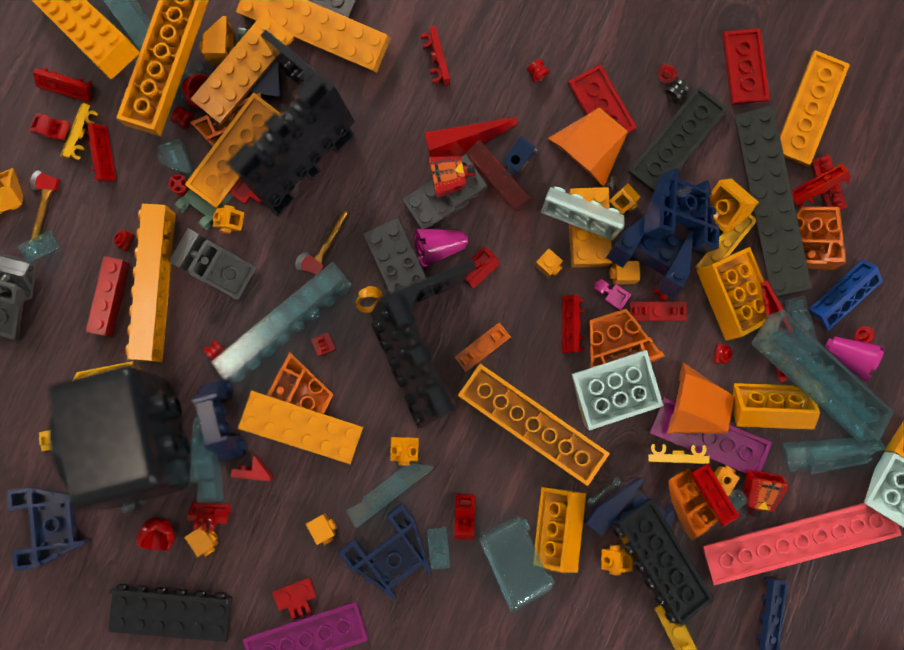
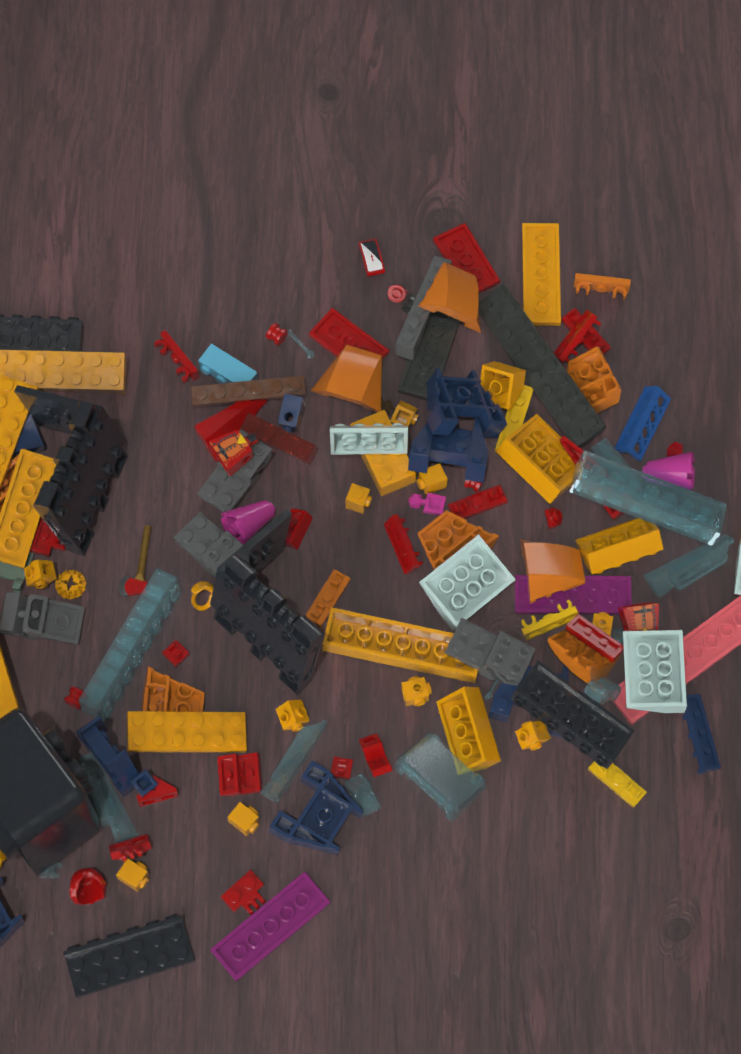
camera: 20 degrees left, 15 degrees down
(241, 462) = (144, 782): none -> dark blue slope
(263, 237) = (75, 590): none -> light orange gear
(335, 483) = (239, 774): none -> red slope
(429, 515) = (341, 768): none -> red tile
(478, 88) = (224, 366): none -> medium azure brick
(488, 117) = (241, 391): none -> reddish brown arch
(519, 473) = (416, 691): none -> light orange brick
(562, 101) = (310, 354): none -> clear light blue hinge
(610, 471) = (490, 654): none -> dark grey piece
(657, 28) = (371, 257): none -> slope
(679, 106) = (415, 324): none -> dark grey arch
(700, 549) = (602, 690): none -> clear light blue axle
(721, 99) = (455, 295): none -> orange wedge
(758, 551) = (655, 671): none -> light aqua slope
(865, 142) = (602, 284): none -> orange plate

